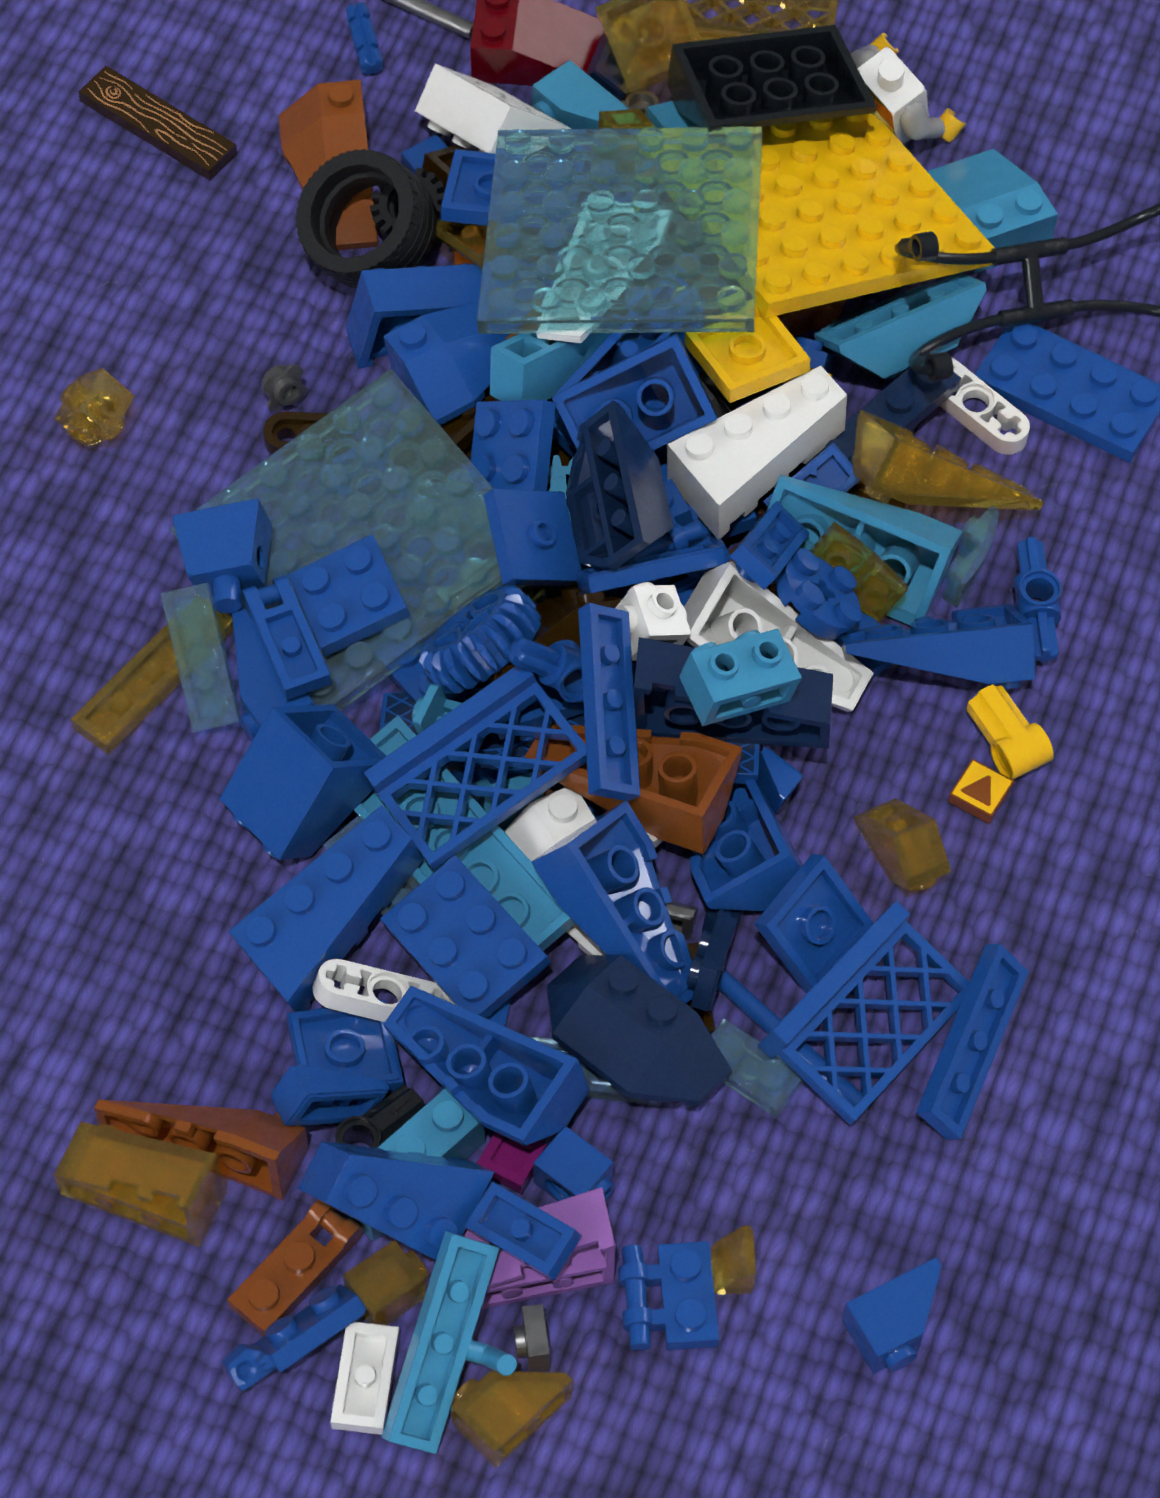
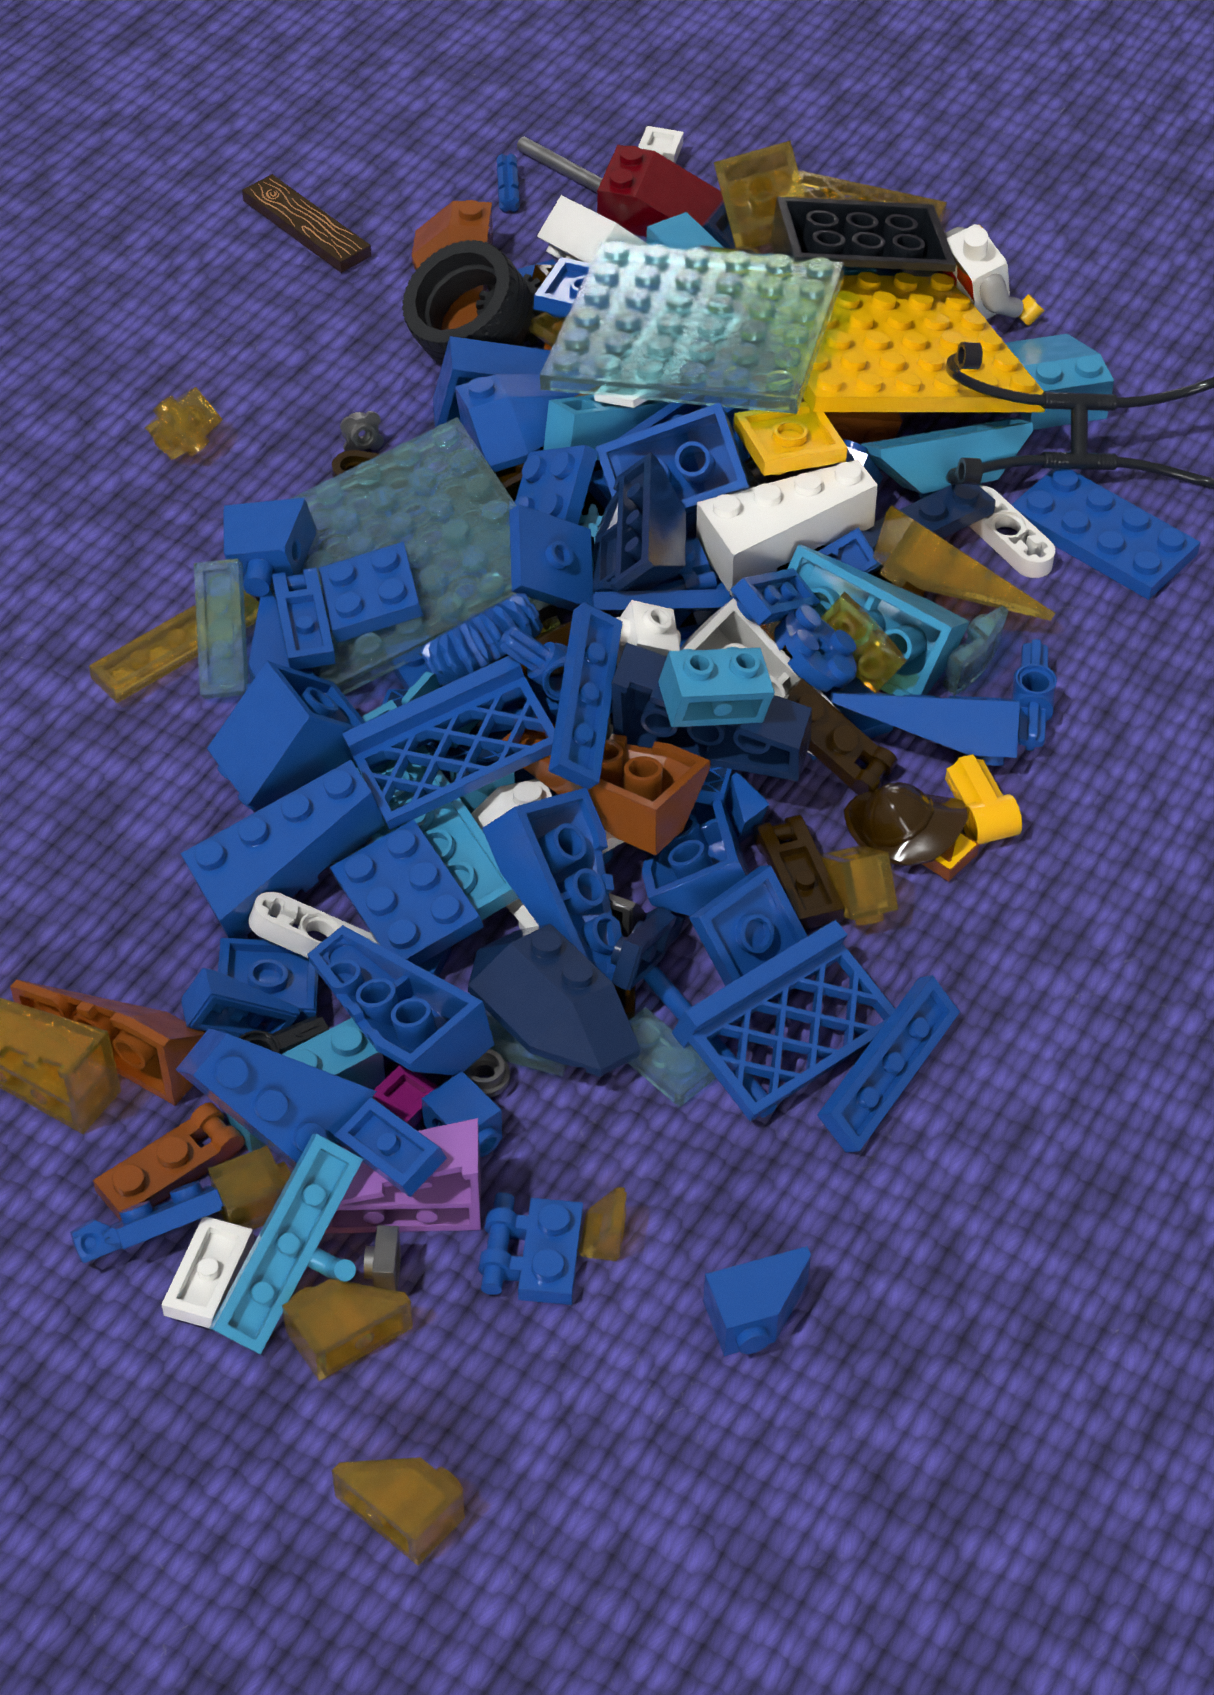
camera: 10 degrees right, 10 degrees down
(597, 1112) = (490, 1064): none -> flat silver plate
(844, 840) = (800, 871): none -> dark brown plate
(858, 689) = (840, 743): none -> dark brown plate
(939, 770) = (905, 822): none -> dark brown hat

